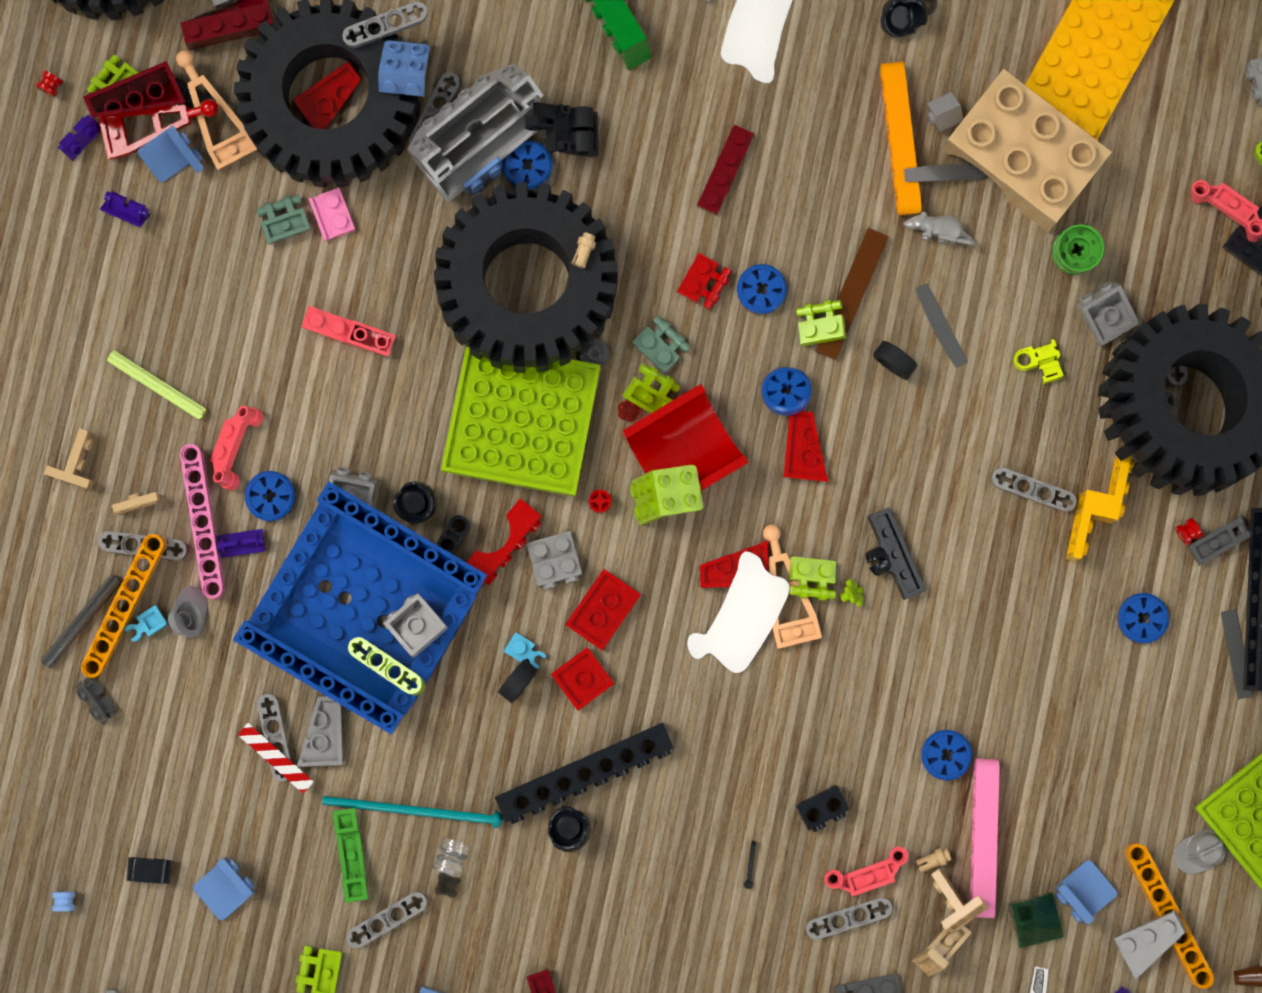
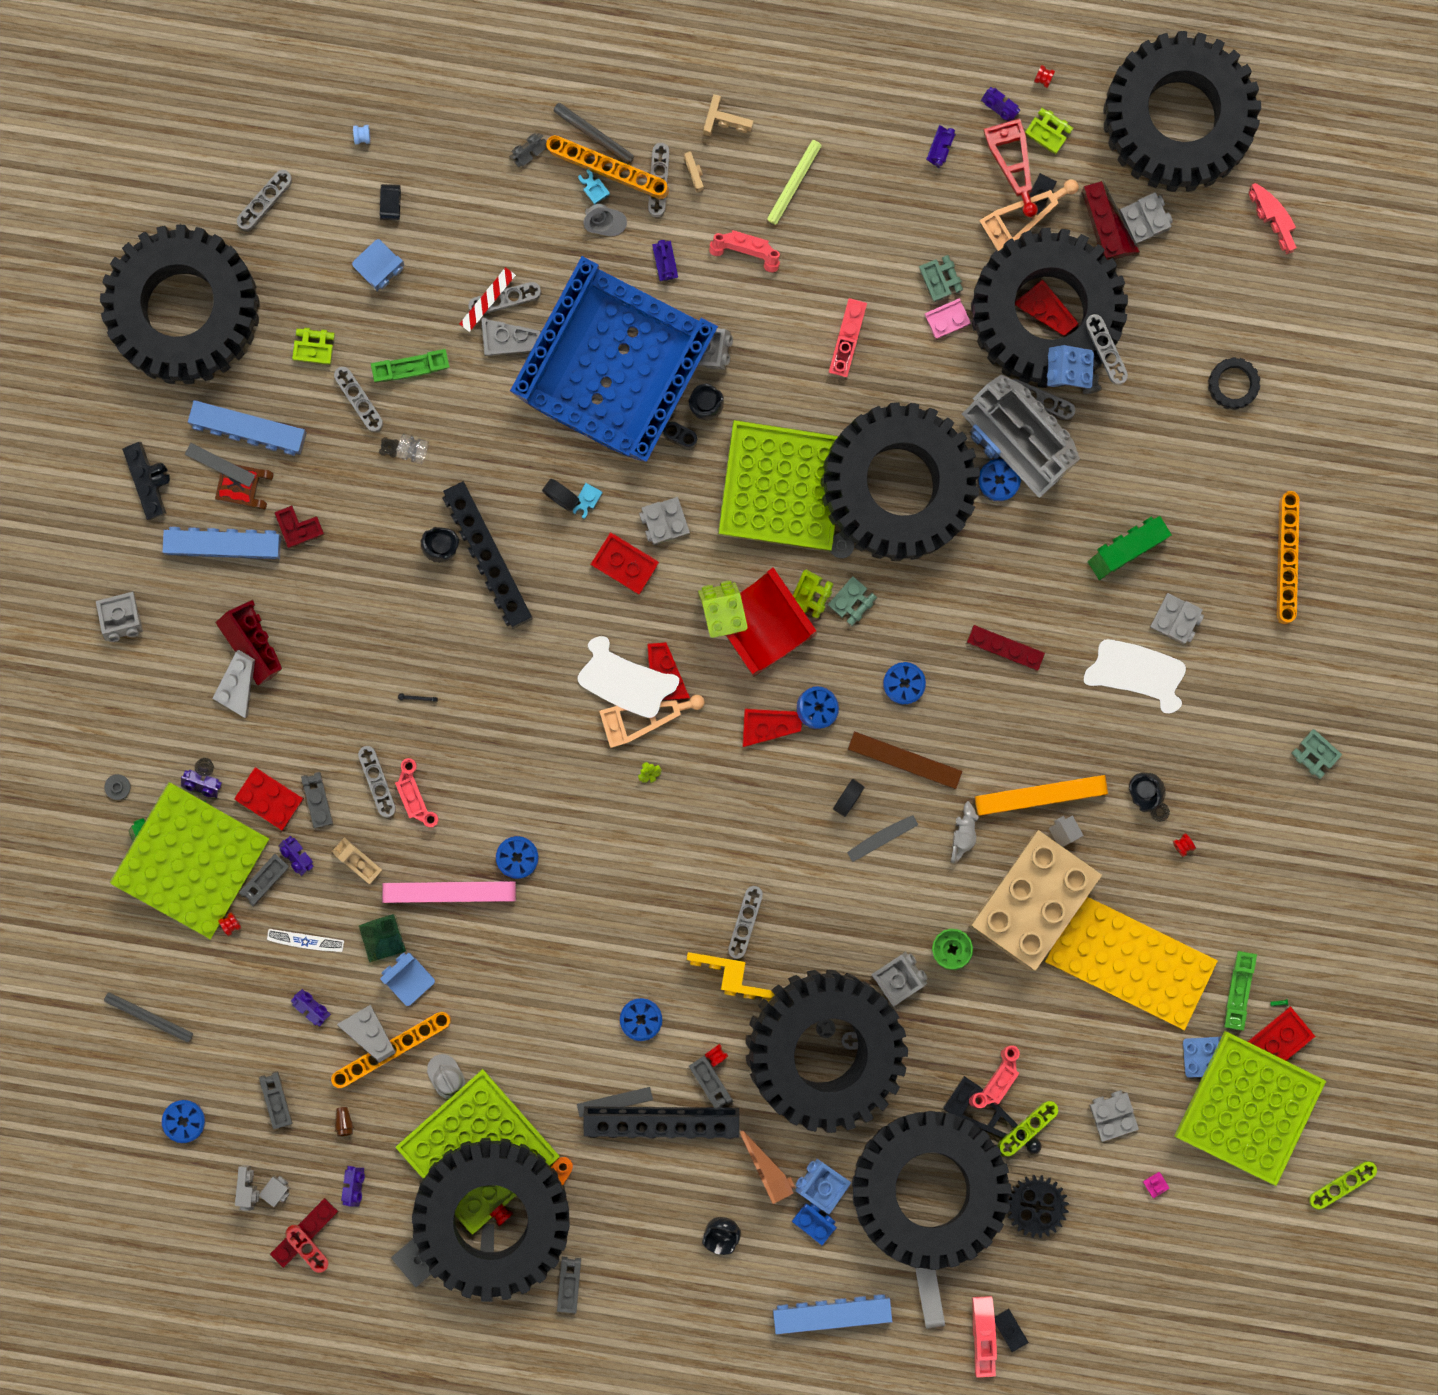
camera: 85 degrees right, 0 degrees up
(141, 91) = (1039, 150): dark red wedge -> none
(169, 154) = (989, 179): medium blue bracket -> none
(196, 512) = (688, 221): bright pink beam -> none
(281, 504) = (697, 290): blue wheel -> none
(386, 666) = (566, 384): lime beam -> none
(415, 625) = (602, 406): light grey plate -> none
(495, 819) = (445, 484): teal bar -> none
(522, 521) = (695, 491): red arch -> none
(566, 128) = (1030, 510): black plate -> none
(582, 679) = (565, 549): red plate -> none
(585, 245) = (927, 527): tan animal -> none
(600, 501) = (716, 552): red wheel -> none
(631, 416) = (789, 577): clear red plate -> none
(698, 277) = (910, 629): red plate -> none
(812, 571) = (666, 737): lime plate -> none
(819, 802) = (471, 752): black brick -> none
(823, 329) = (871, 734): lime plate -> none
(893, 554) = (683, 804): black plate -> none
(933, 860) = (430, 854): tan animal -> none
(943, 173) = (1012, 829): dark grey sticker -> none
(964, 912) = (387, 873): tan bracket -> none
(1045, 359) = (859, 927): neon yellow piece -> none

